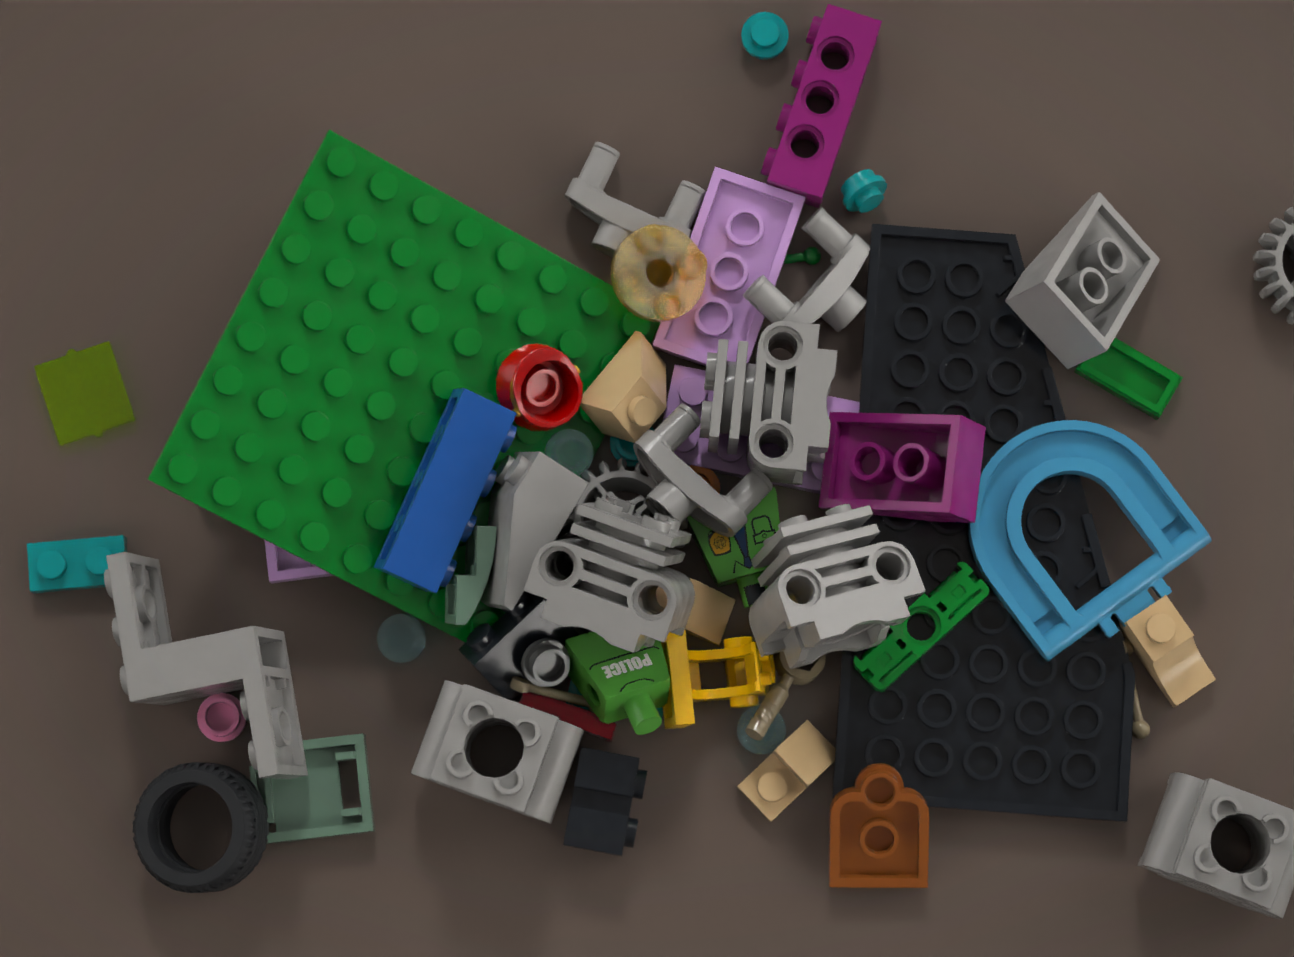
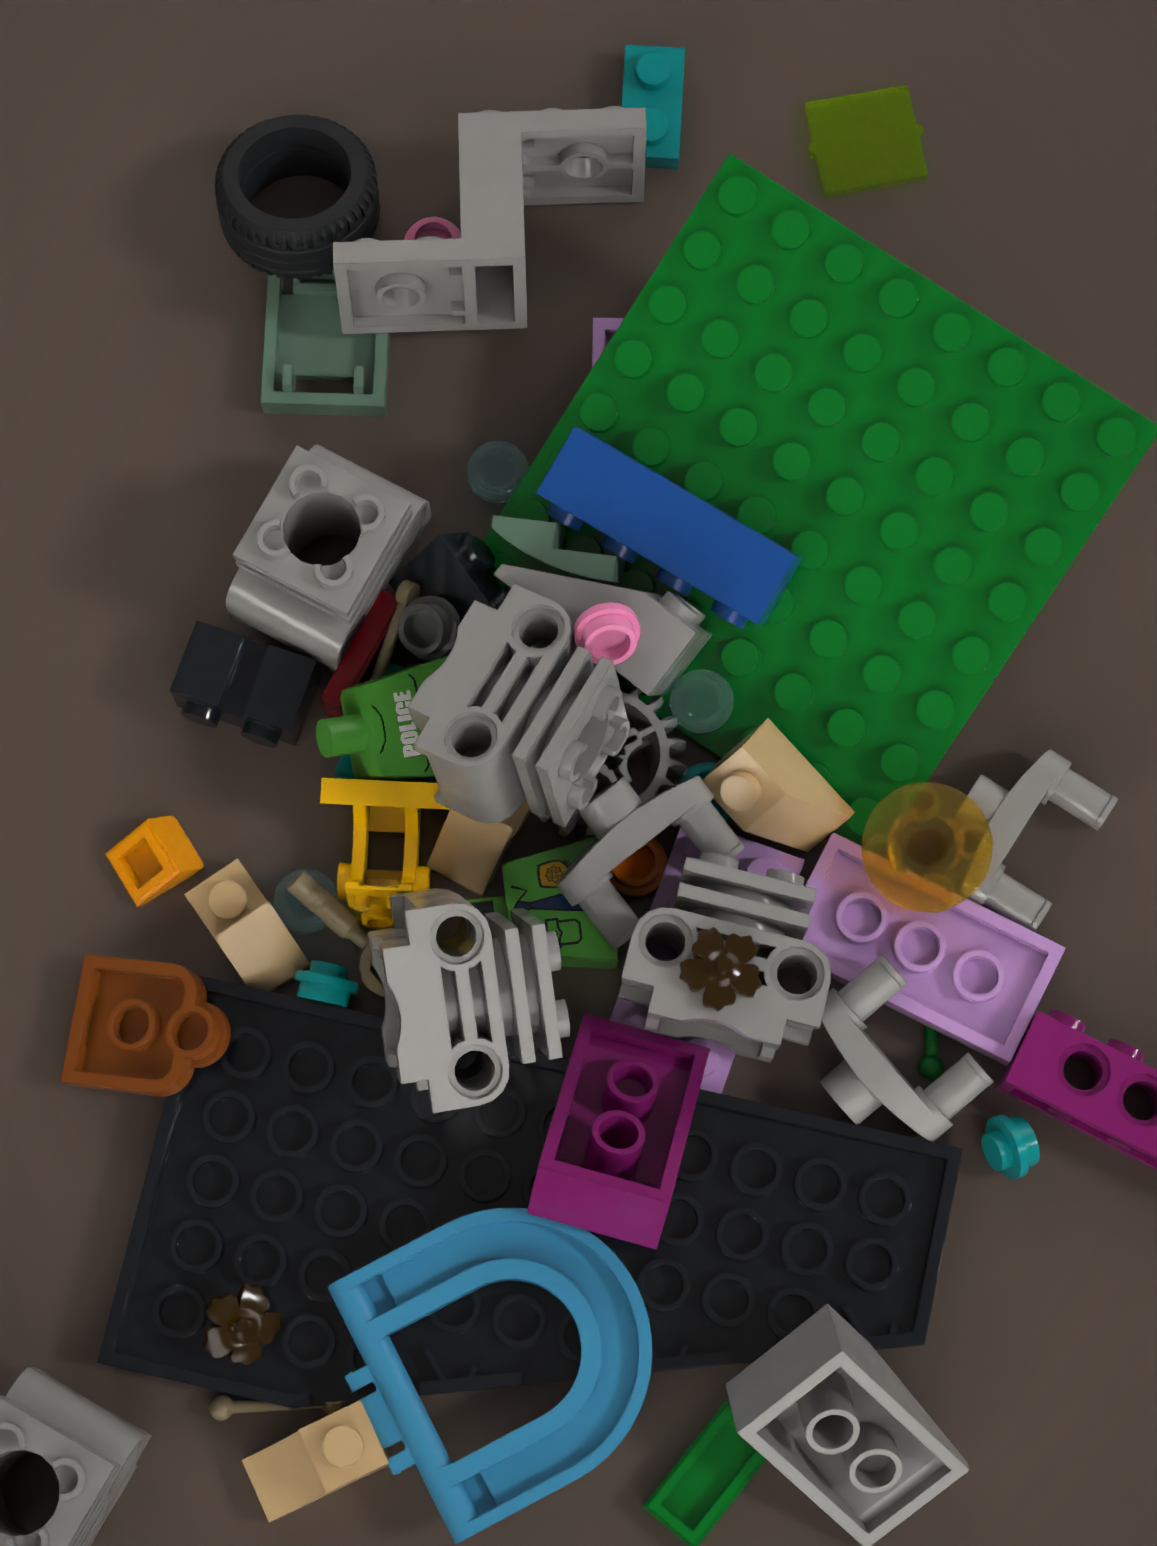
camera: 95 degrees right, 5 degrees down
(539, 387) = (793, 669): red piece -> none
(552, 514) = (608, 631): none -> bright pink plate
(746, 850) = (154, 859): none -> light orange slope
(789, 398) = (721, 968): none -> dark brown plant
(824, 702) = (325, 984): none -> teal plate
(946, 606) = (422, 1163): green piece -> none
(1085, 718) = (240, 1324): none -> dark brown plant

